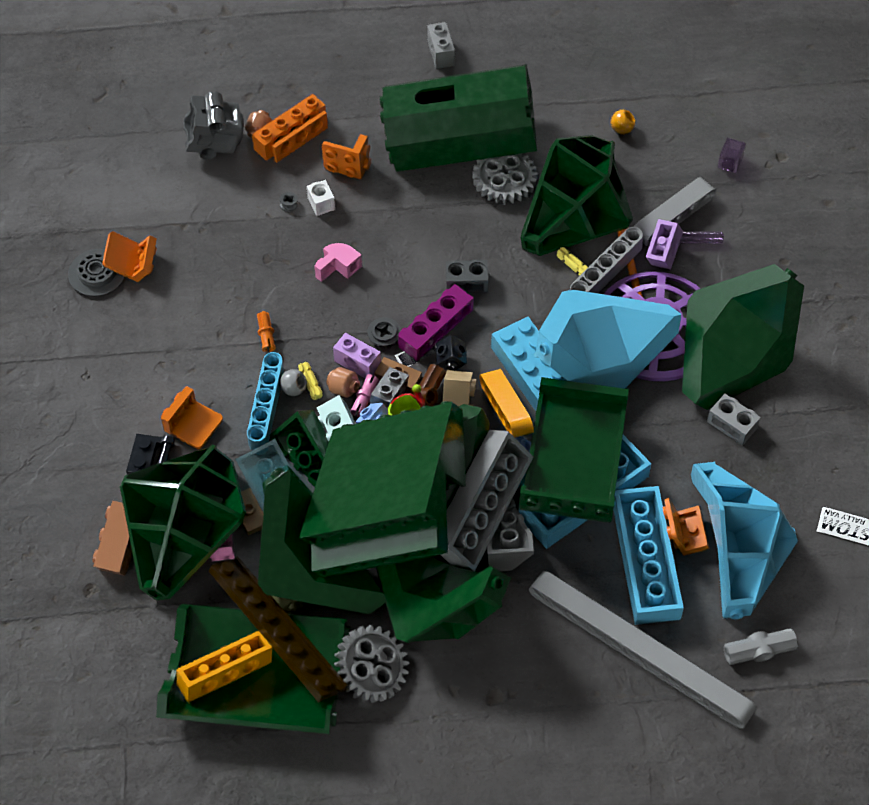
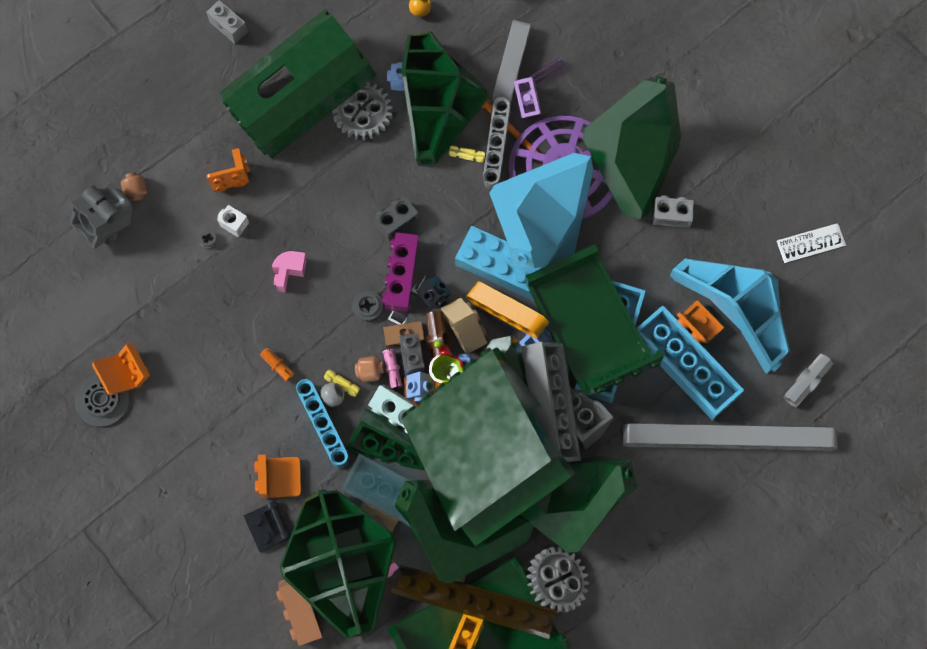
camera: 35 degrees left, 15 degrees up
(265, 138) = (159, 175): orange brick -> none
(356, 355) = (364, 340): lavender brick -> none

